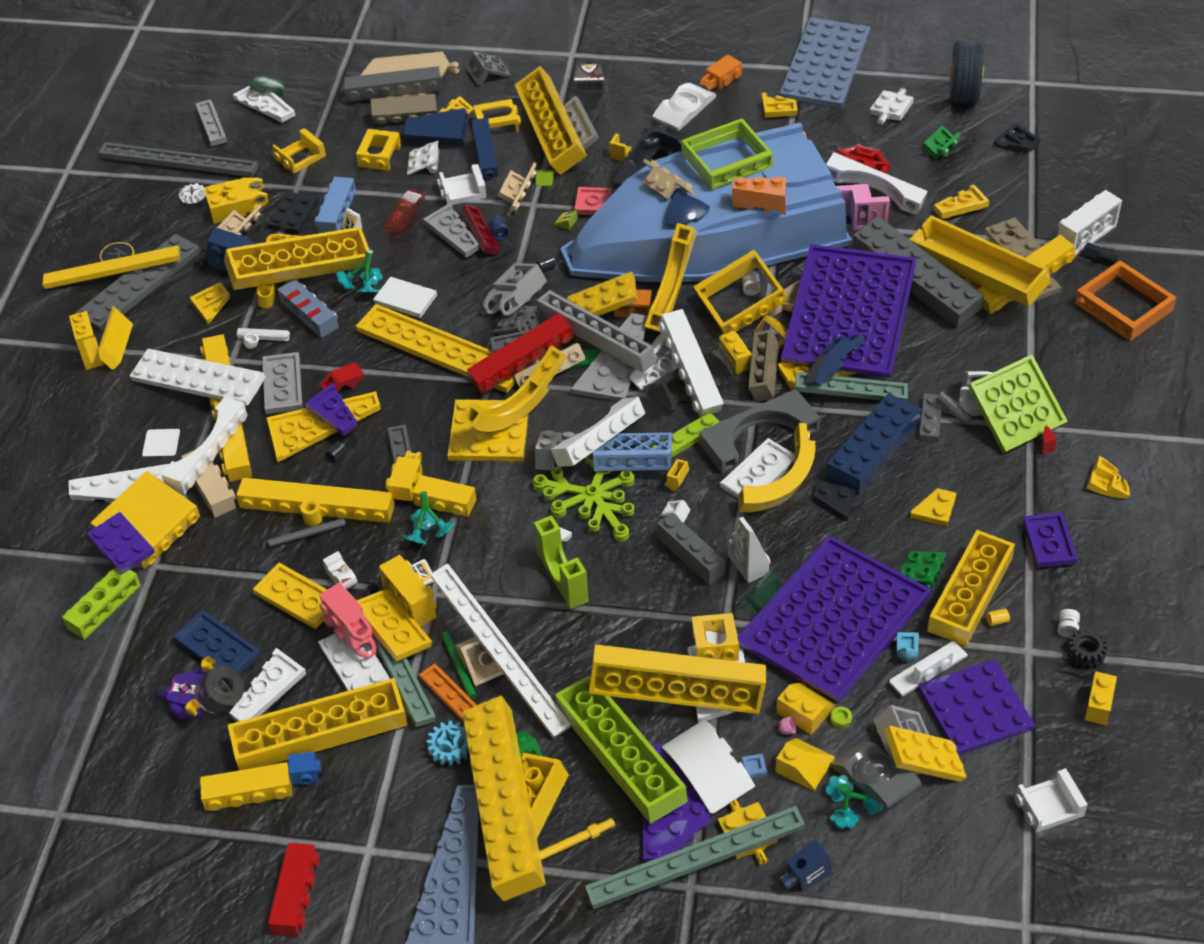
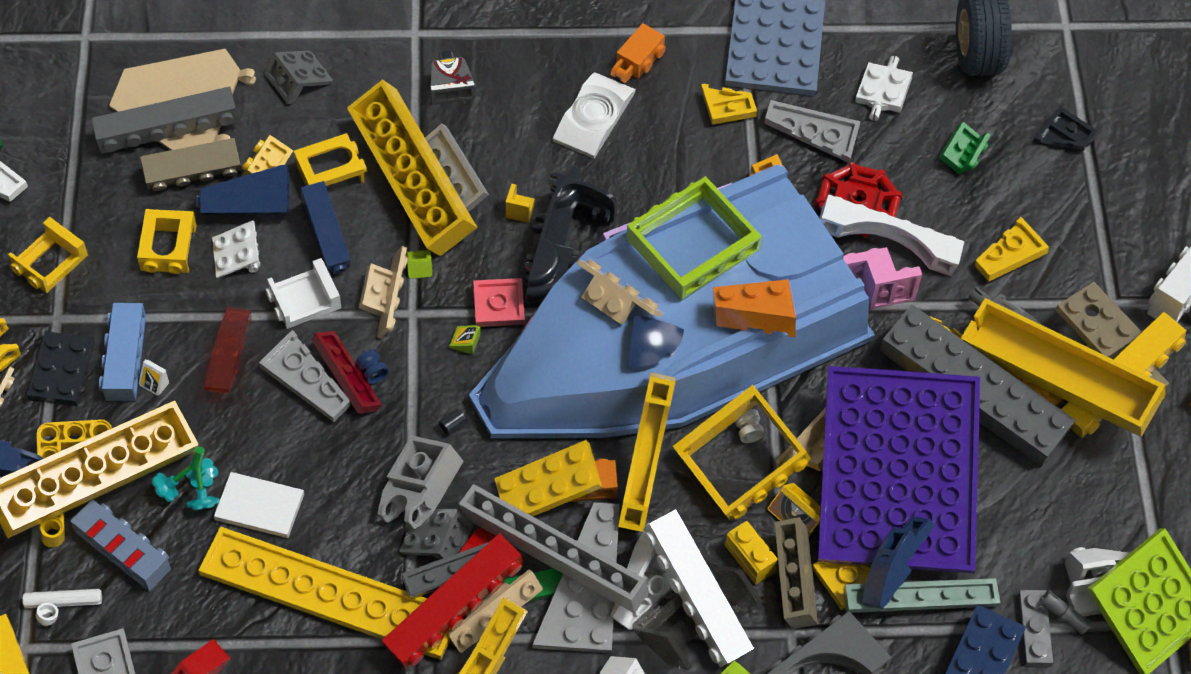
camera: 15 degrees left, 10 degrees up
(838, 124) = (822, 130): none -> light grey wing

